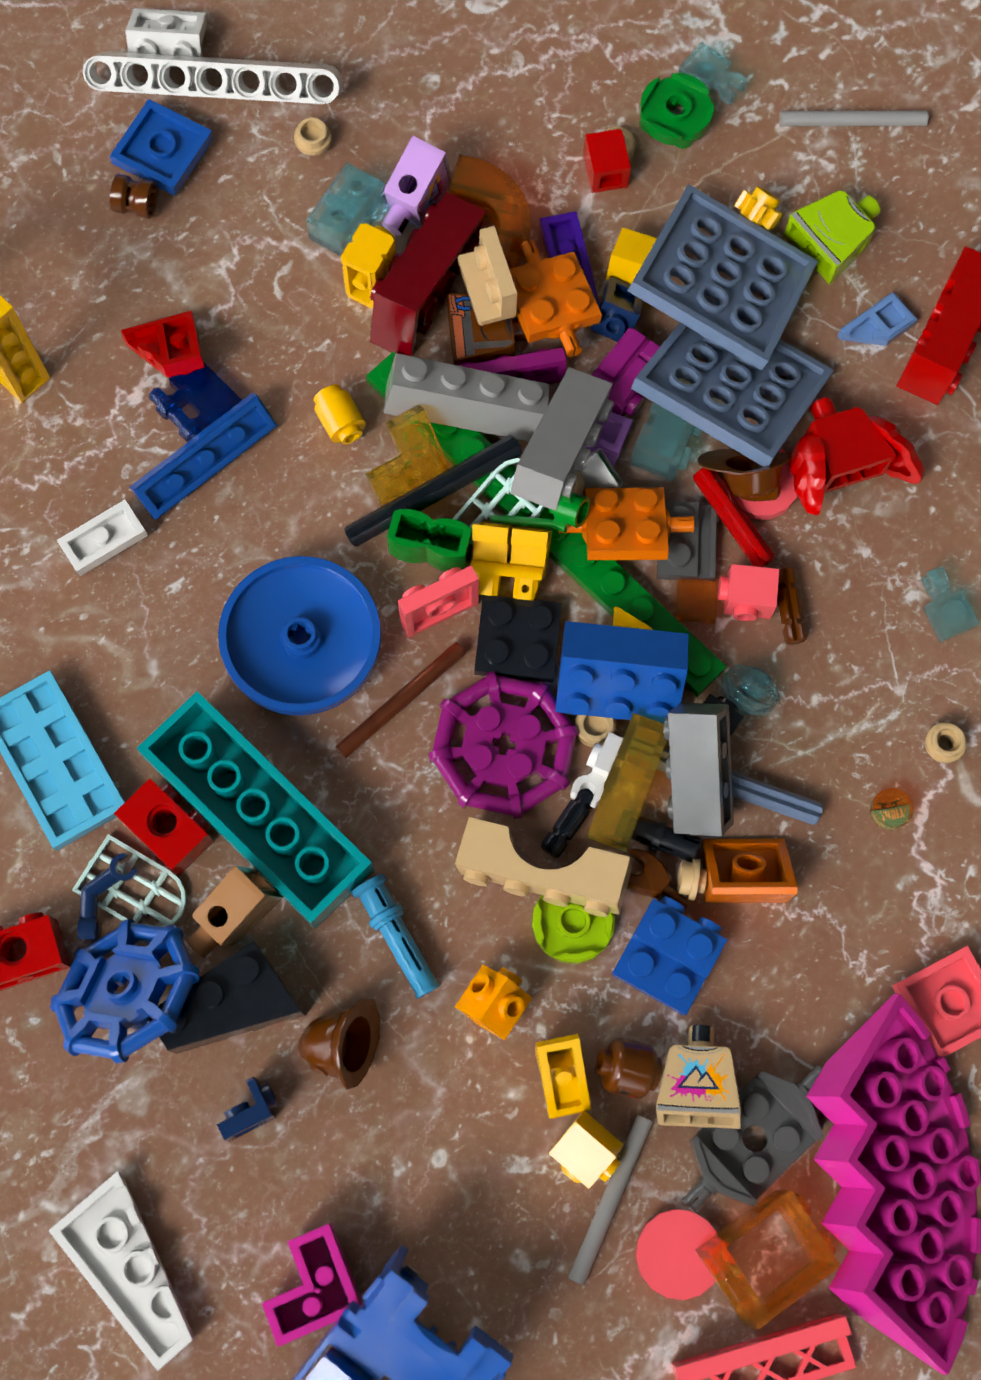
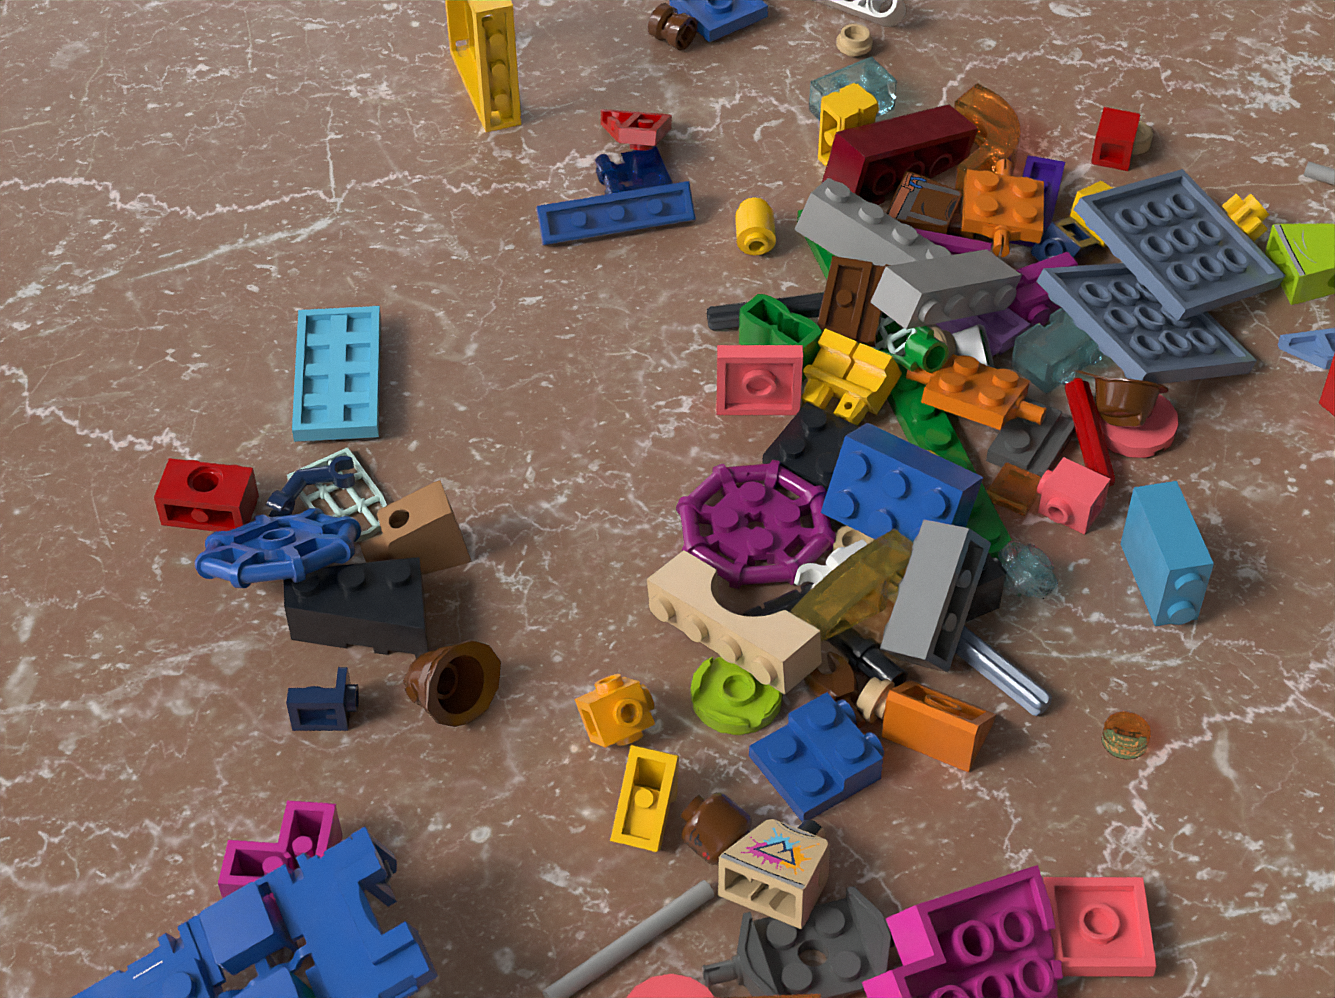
camera: 30 degrees right, 25 degrees down
(102, 537) = (489, 237): white plate -> none
(121, 1264) = (125, 778): white wing -> none
(145, 810) = (400, 453): red brick -> none
(256, 809) = (491, 474): teal brick -> none
(299, 635) = (615, 361): blue dish -> none
(387, 918) = (556, 610): dark azure pin -> none
(400, 700) = (679, 453): copper bar -> none
(415, 184) = (925, 84): lavender torso -> none
(418, 457) = (809, 266): clear yellow plate -> none
(481, 479) = (848, 299): none -> reddish brown plate
(489, 279) = (947, 164): tan bracket -> none
(587, 1151) = (629, 877): brick -> none
(672, 128) = (1190, 131): green plate -> none
(713, 71) = (1254, 110): clear light blue plate -> none
(791, 607) = (1110, 527): reddish brown axle -> none
(846, 451) = (1236, 420): red torso -> none
(858, 627) = (1166, 553): none -> dark azure brick
(948, 612) = (1275, 594): clear light blue plate -> none
(953, 734) = (1216, 690): tan plate -> none

